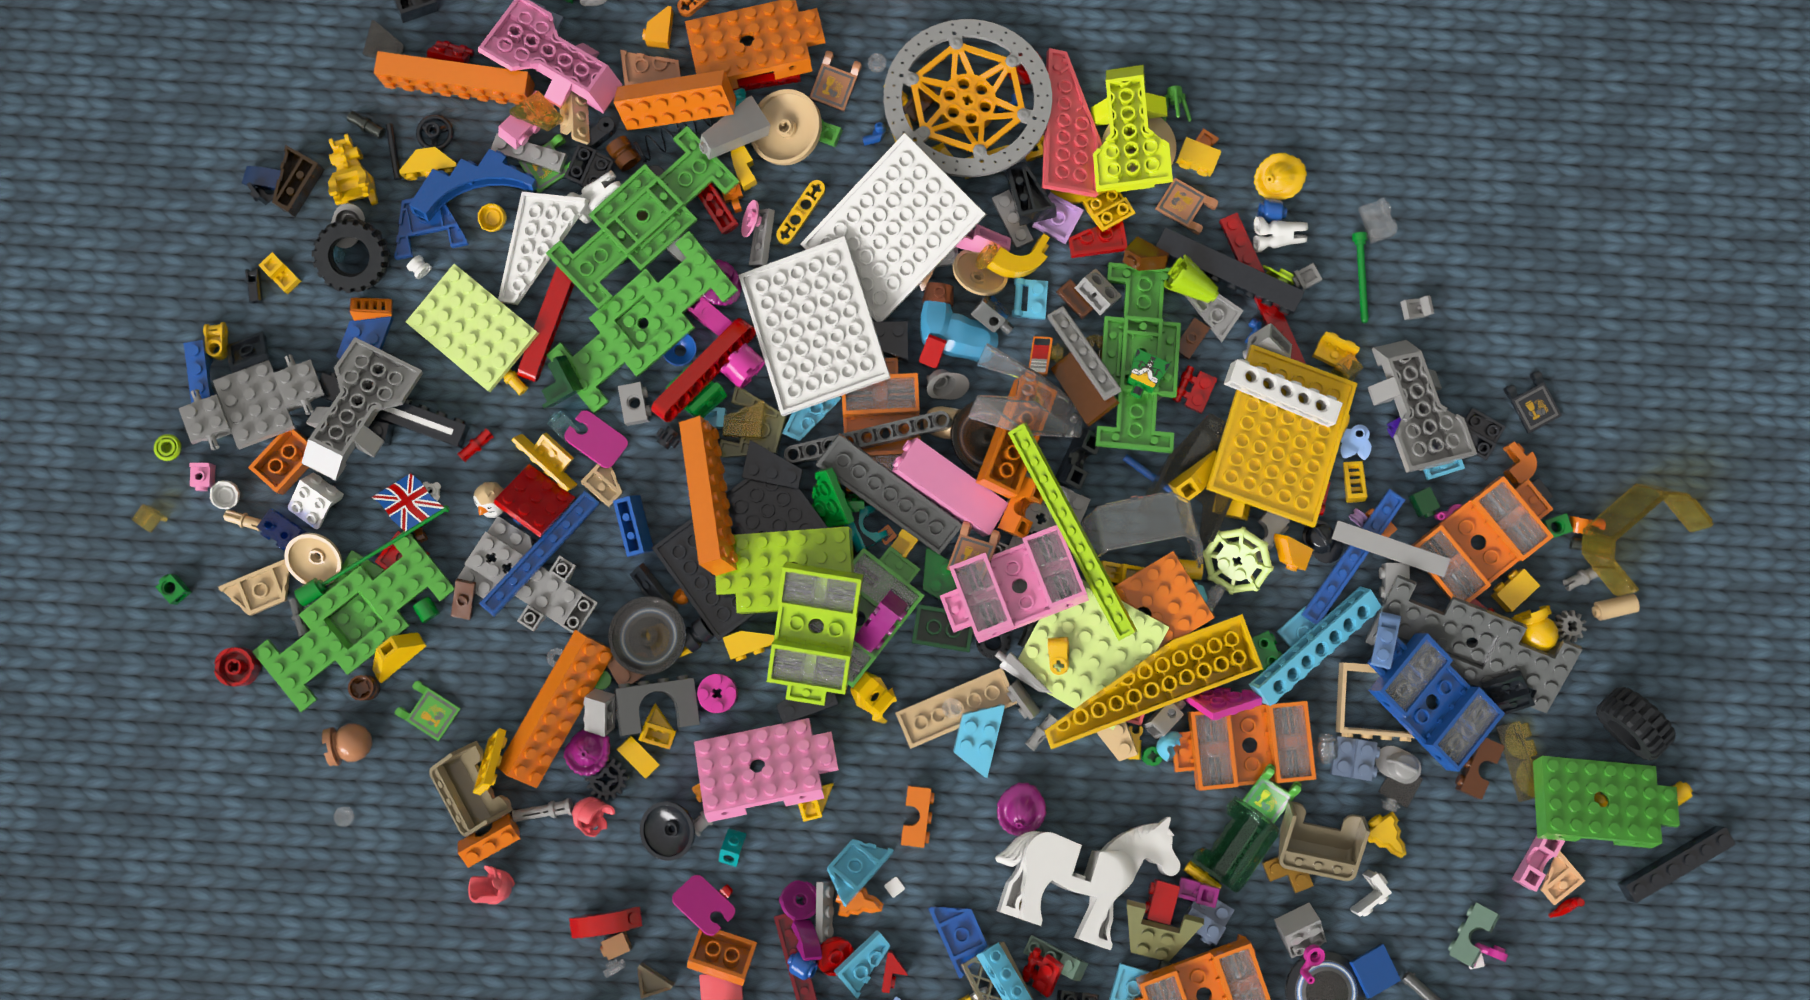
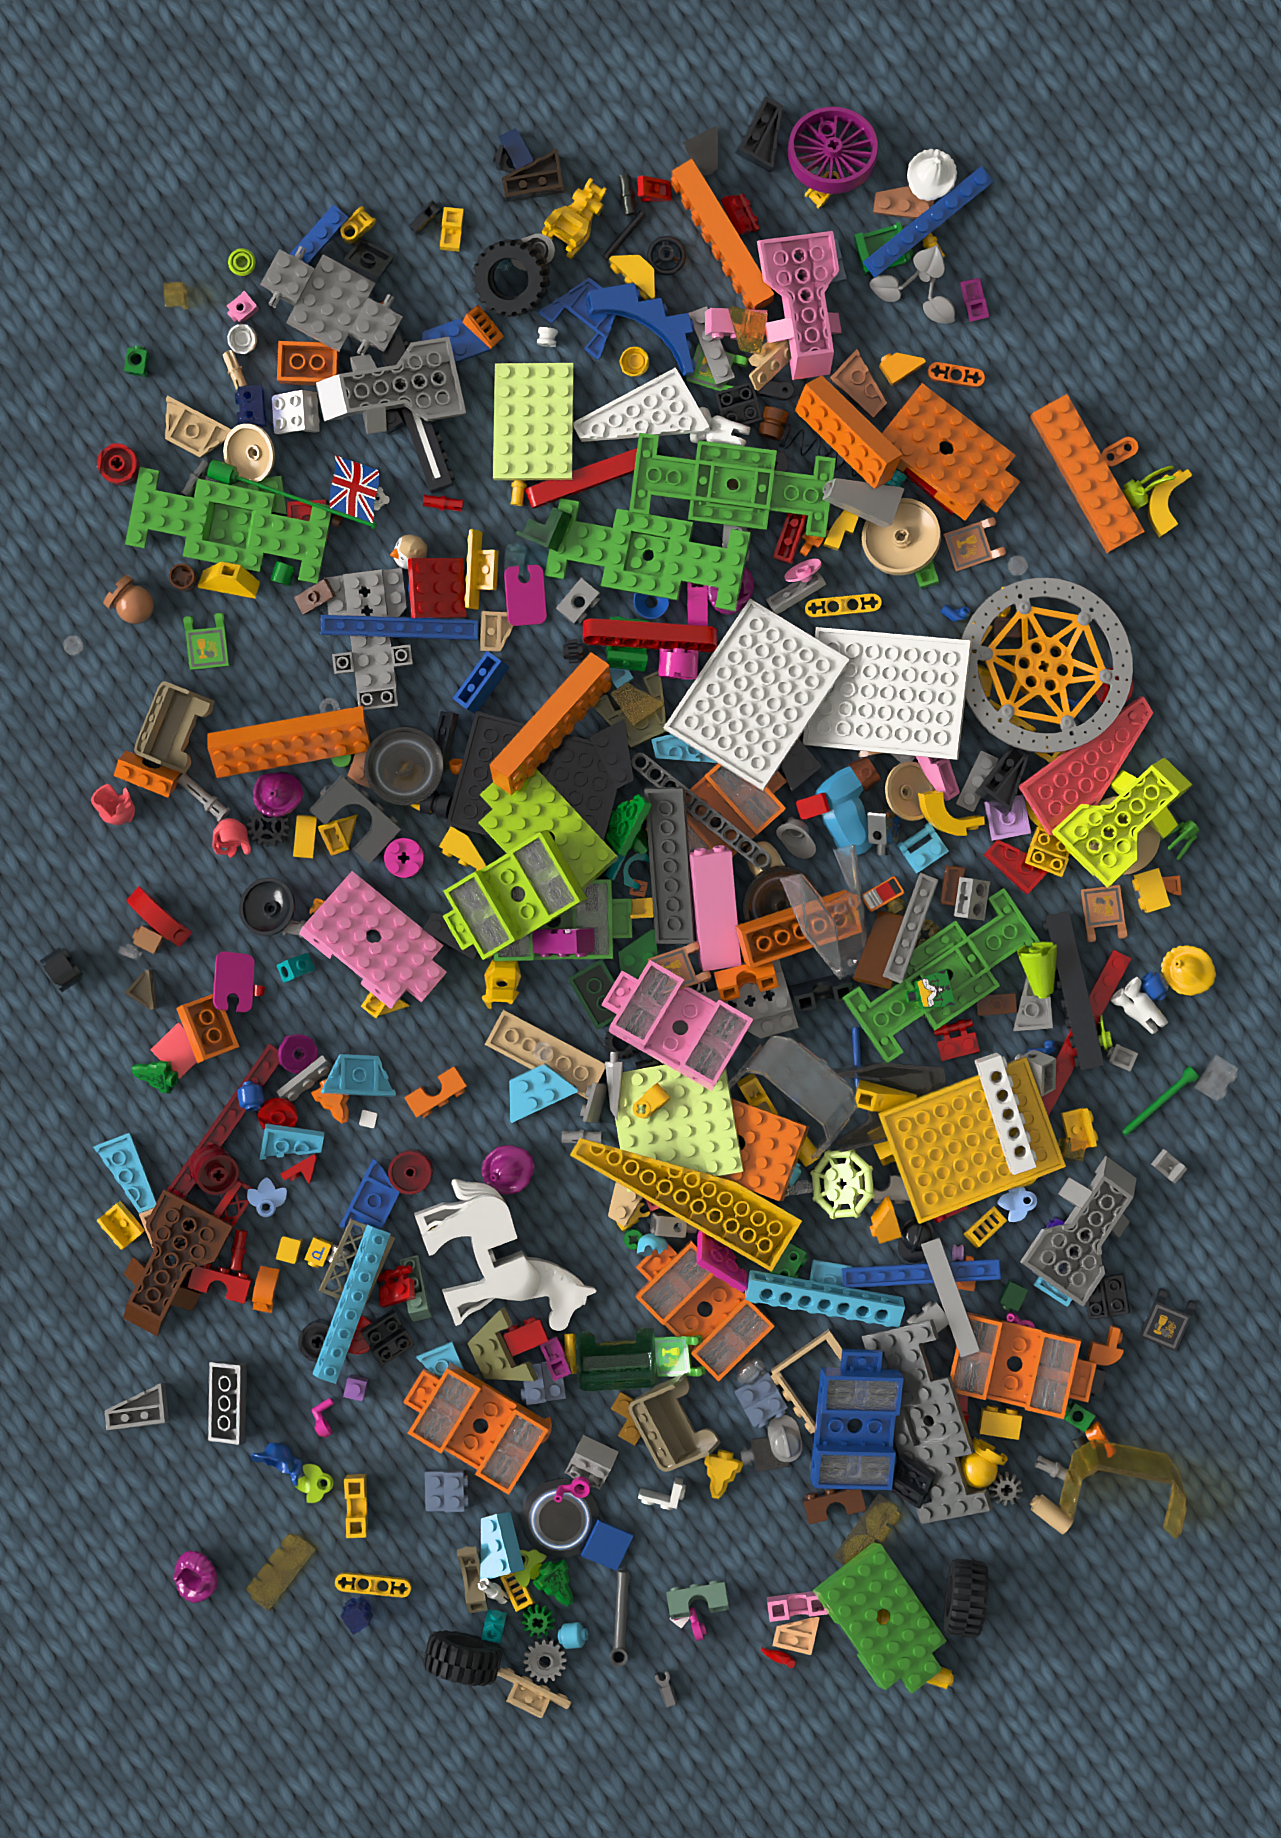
camera: 55 degrees right, 5 degrees up
(378, 102) = (653, 189): none -> red slope
(491, 760) = (208, 726): yellow plate -> none
(599, 712) = (314, 778): light grey brick -> none
(808, 940) = (272, 1085): magenta slope -> none
(968, 897) = (406, 1182): none -> dark red wheel
(986, 255) = (926, 785): clear yellow gear -> none
(1072, 532) = (755, 1034): lime plate -> none
(1145, 256) = (1031, 912): reddish brown slope -> none
(1385, 640) = (871, 1349): medium blue plate -> none
(1676, 864) = (883, 1716): black brick -> none

